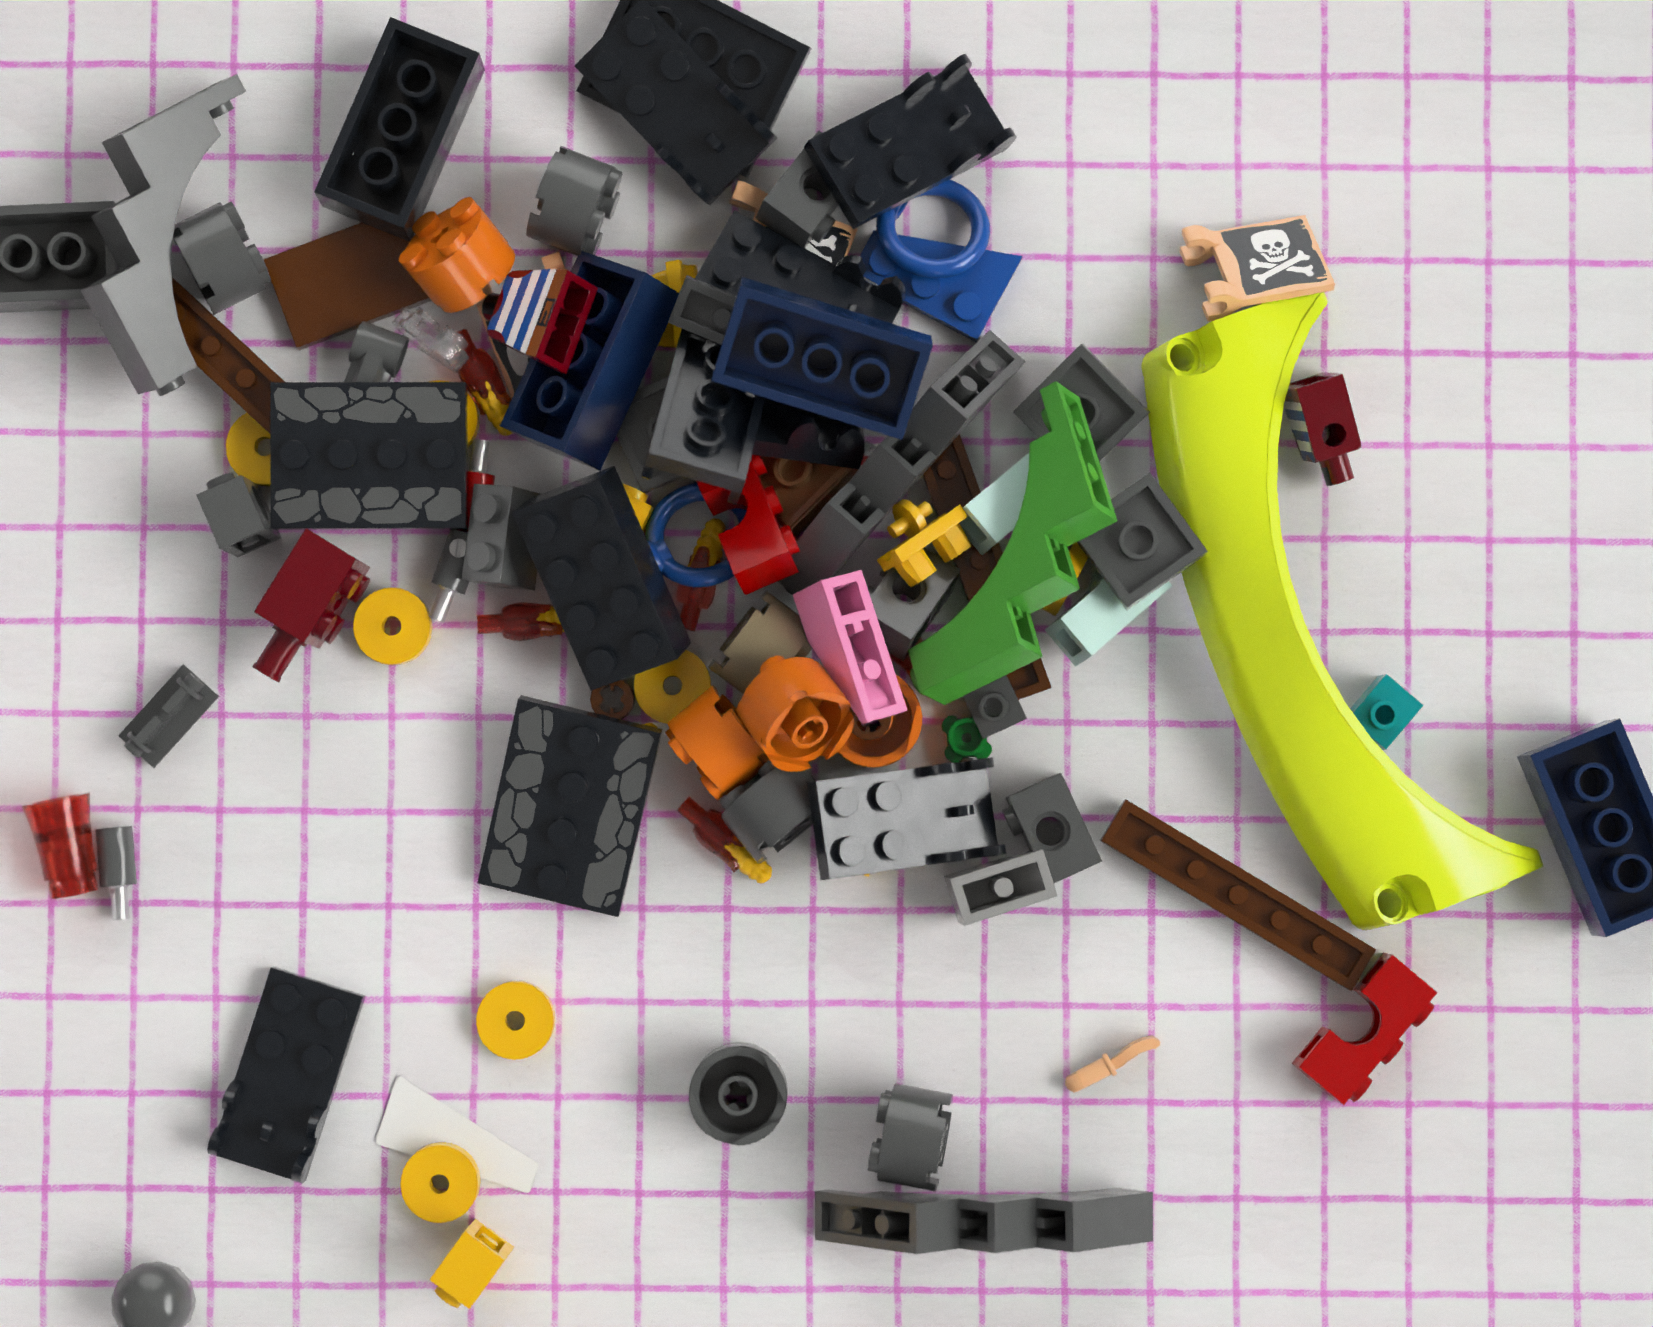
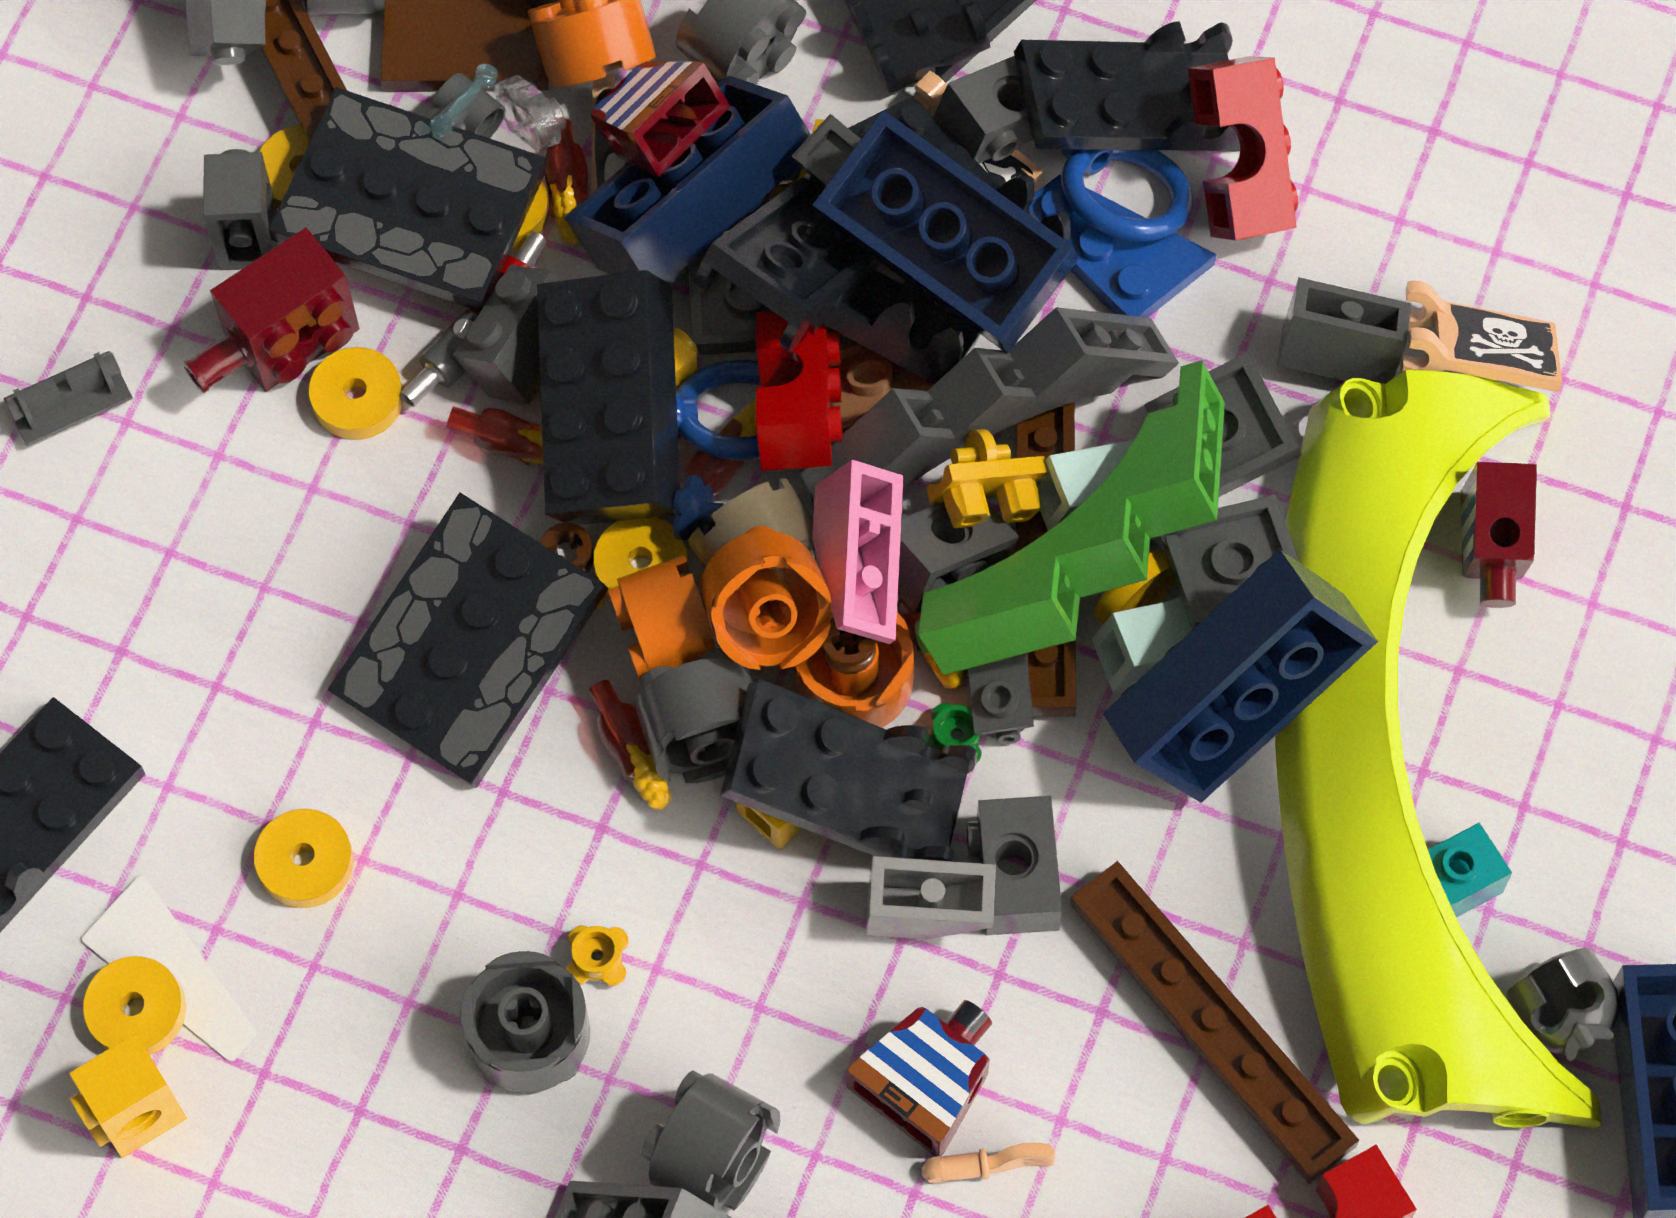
camera: 25 degrees right, 20 degrees down
(382, 320) = (484, 77): none -> clear light blue hinge
(701, 636) = (693, 509): none -> dark blue plant
(760, 1026) = (585, 942): none -> yellow plate
(1039, 197) = (1258, 191): none -> arch
(1045, 1016) = (925, 1073): none -> torso
(1149, 297) = (1343, 332): none -> dark grey brick
(1176, 639) = (1239, 677): none -> dark blue brick
(1493, 790) = (1567, 1002): none -> dark grey helmet

